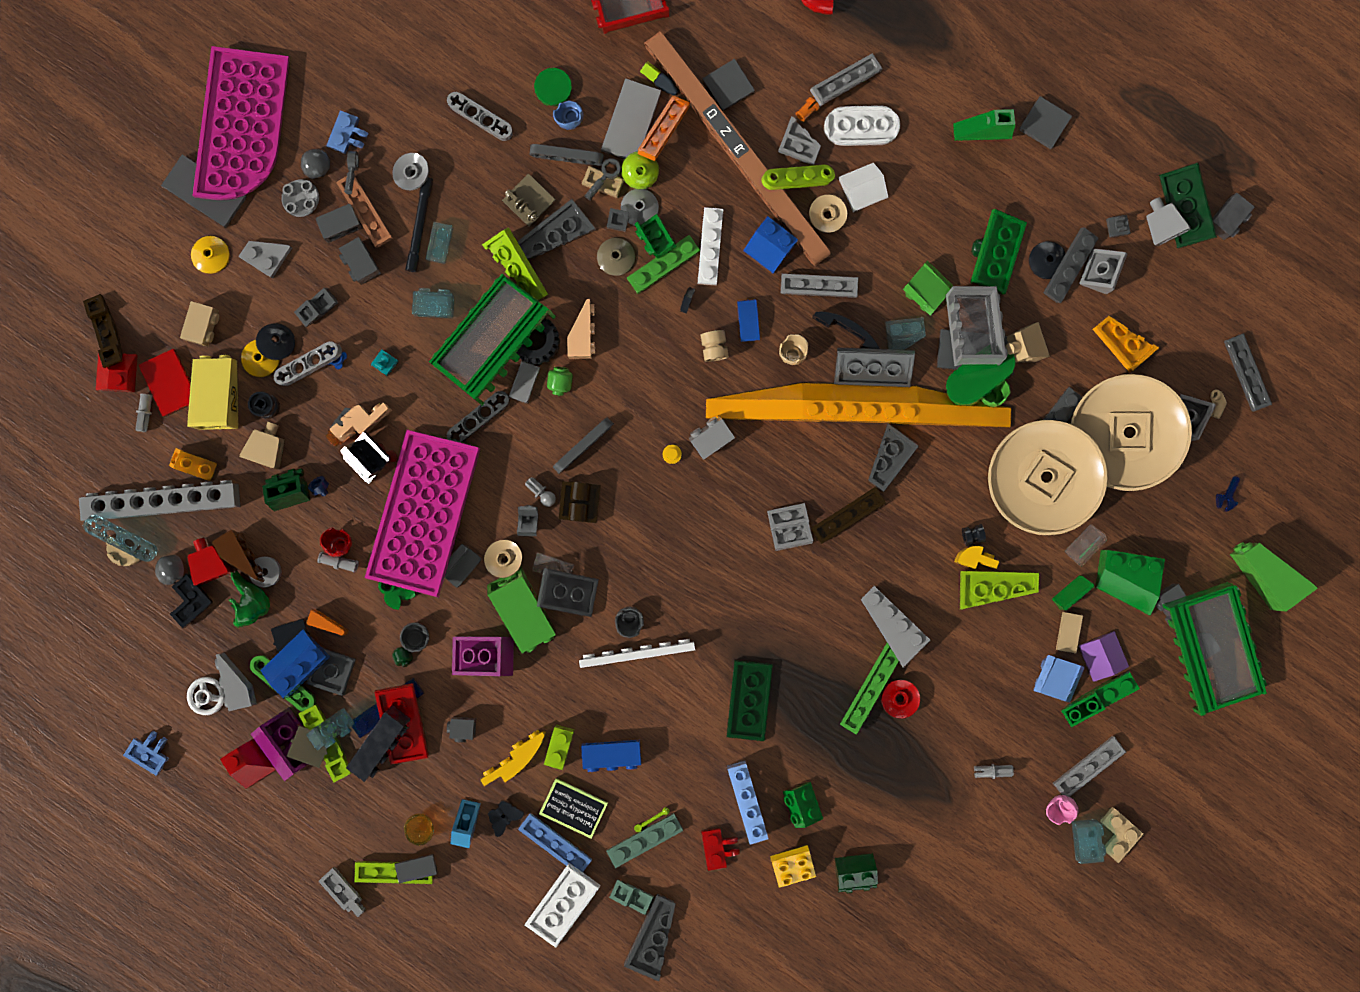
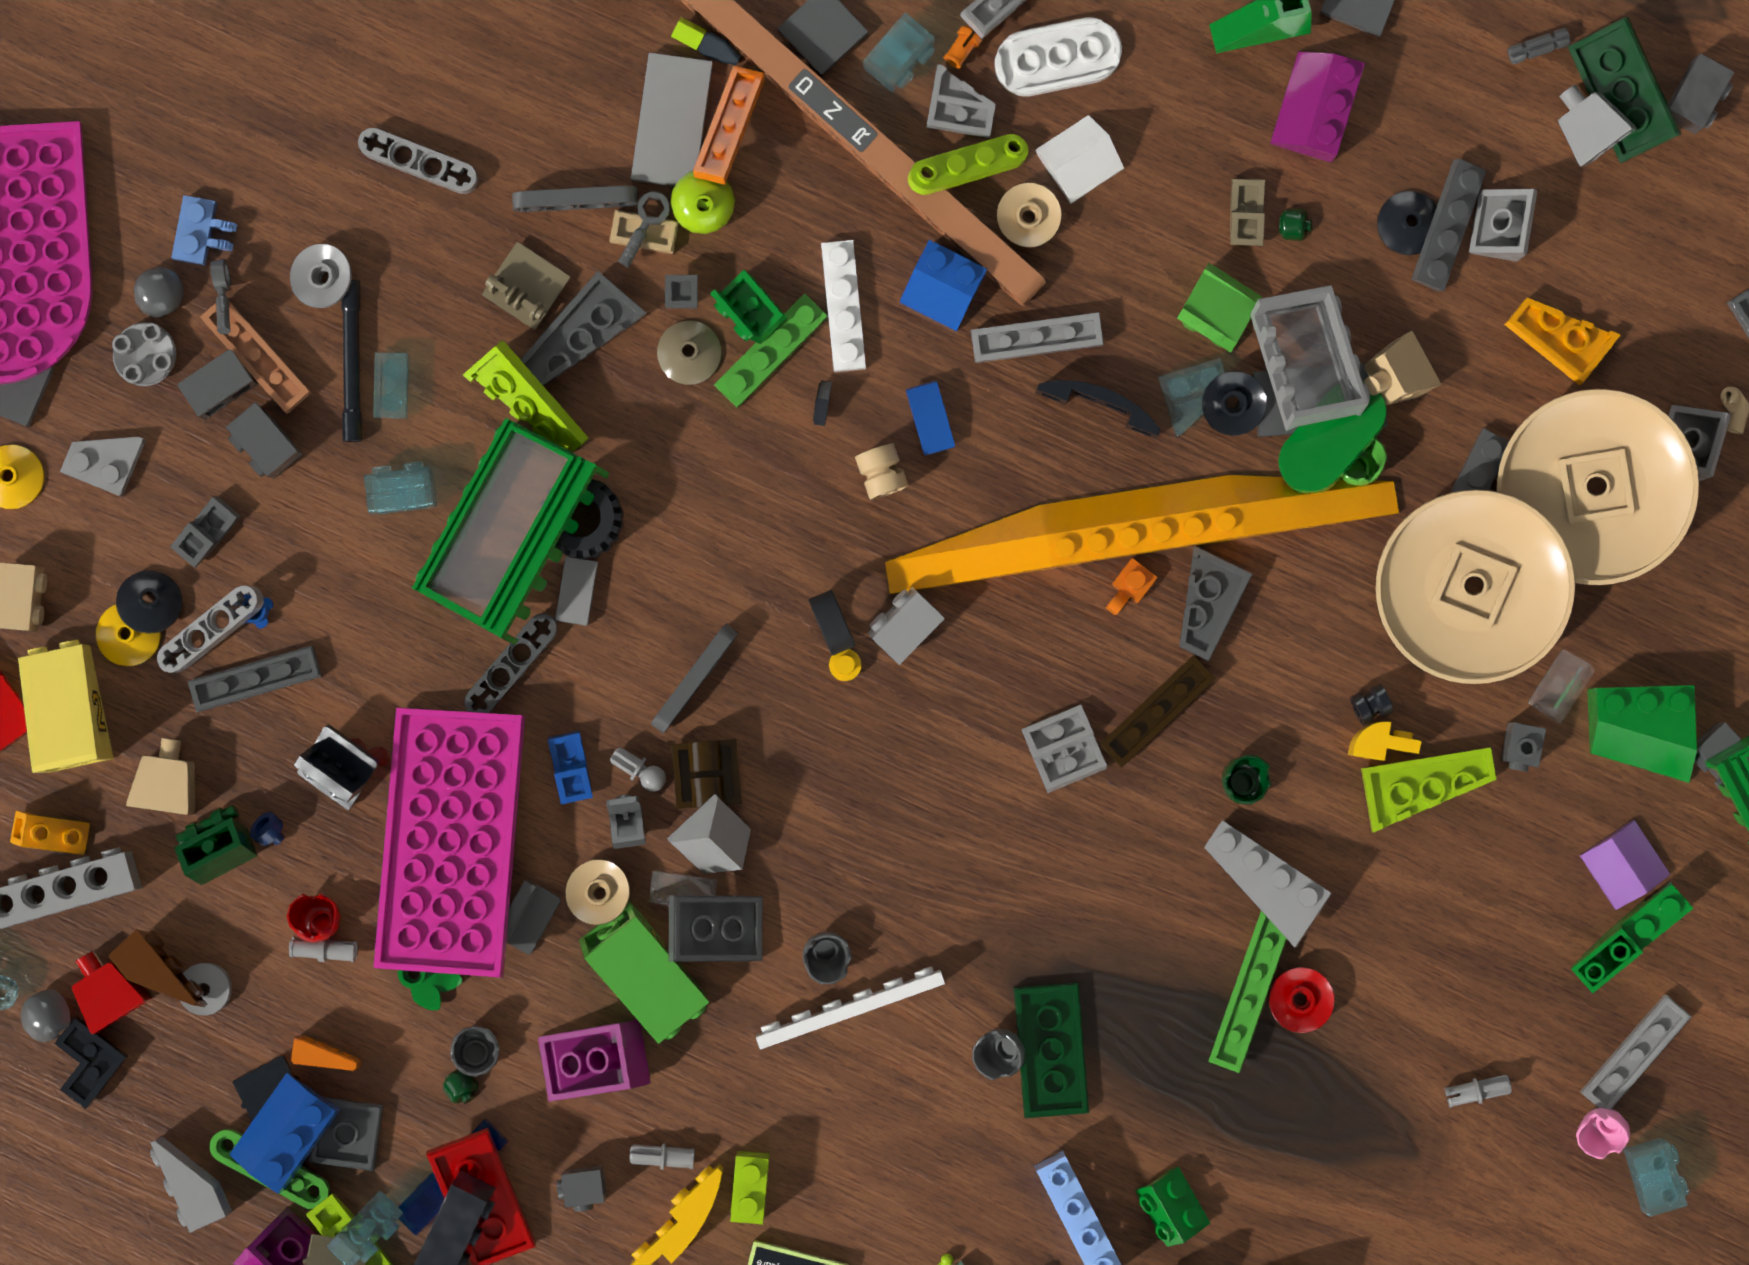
camera: 10 degrees left, 0 degrees up
(210, 697) = (136, 1222): white piece -> none
(252, 603) = (195, 1044): green piece -> none
(263, 405) = (150, 712): black wheel -> none
(328, 398) = (255, 679): none -> dark grey tile
(355, 420) = (305, 708): light nougat plate -> none
(384, 362) = (337, 602): teal tile -> none
(501, 483) = (570, 767): none -> blue slope
(511, 719) = (662, 1156): none -> light grey axle
(553, 86) = (531, 89): green tile -> none
(559, 380) = (635, 577): bright green head -> none
(568, 115) = (565, 132): medium blue hair -> none
(576, 540) = (713, 838): none -> light grey slope
(580, 339) = (655, 498): light nougat slope -> none
(611, 755) = (839, 1184): blue brick -> none
(649, 208) = (716, 244): light grey dish -> none
(669, 427) = (831, 622): none -> black tyre
(718, 697) = (998, 1054): none -> dark grey hair
(770, 105) = (899, 53): none -> clear light blue brick
(794, 349) = (1015, 452): tan hair -> none
(847, 438) = (1132, 584): none -> orange plate
(874, 367) = (1153, 457): dark grey tile -> none
(892, 564) = (1246, 779): none -> dark green hair
(936, 346) = (1245, 414): none -> black dish
(955, 235) = (1247, 212): none -> dark tan slope
(998, 251) = (1324, 225): green tile -> none
(1007, 180) = (1317, 104): none -> magenta slope
(1057, 575) = (1522, 746): none -> dark grey brick
(1058, 678) = (1556, 916): medium blue slope -> none
(1069, 632) = (1560, 836): tan tile -> none
(1072, 593) = (1553, 769): green slope -> none
(1118, 226) = (1515, 145): dark grey tile -> none
(1124, 835) = (1714, 1152): tan plate -> none
(1142, 171) = (1538, 46): none -> dark grey axle

